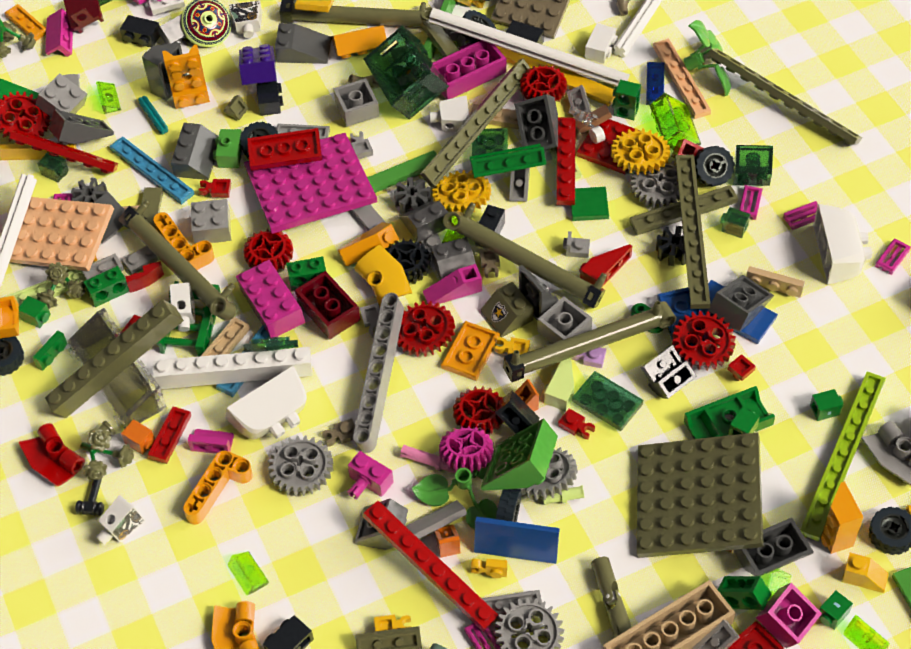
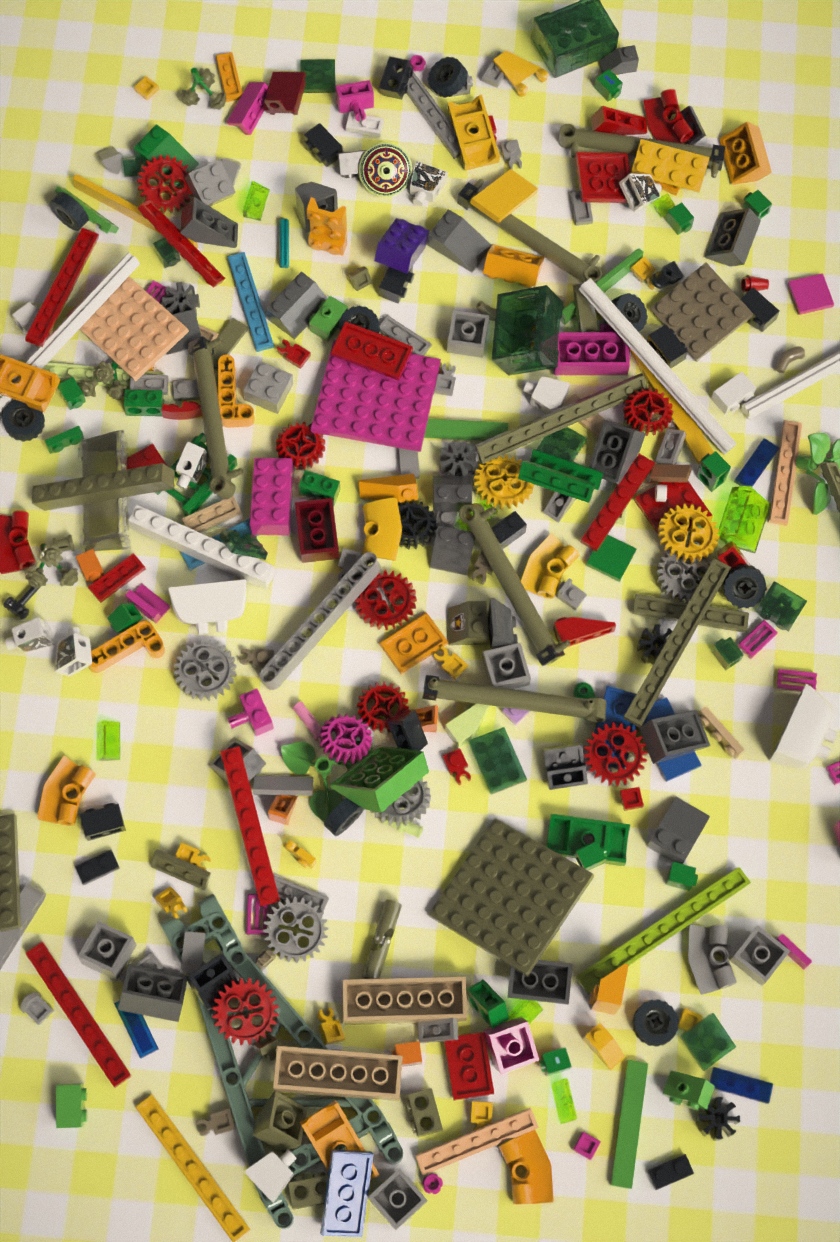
camera: 25 degrees right, 15 degrees up
(169, 514) = (73, 653): none -> white torso
(198, 460) = (124, 617): none -> green brick
(455, 285) = (436, 574): dark pink slope -> none
(516, 540) = (334, 845): blue tile -> none
(542, 234) = (538, 574): none -> yellow panel
(582, 116) = (659, 465): clear plate -> none
(797, 374) = (678, 831): none -> dark grey slope

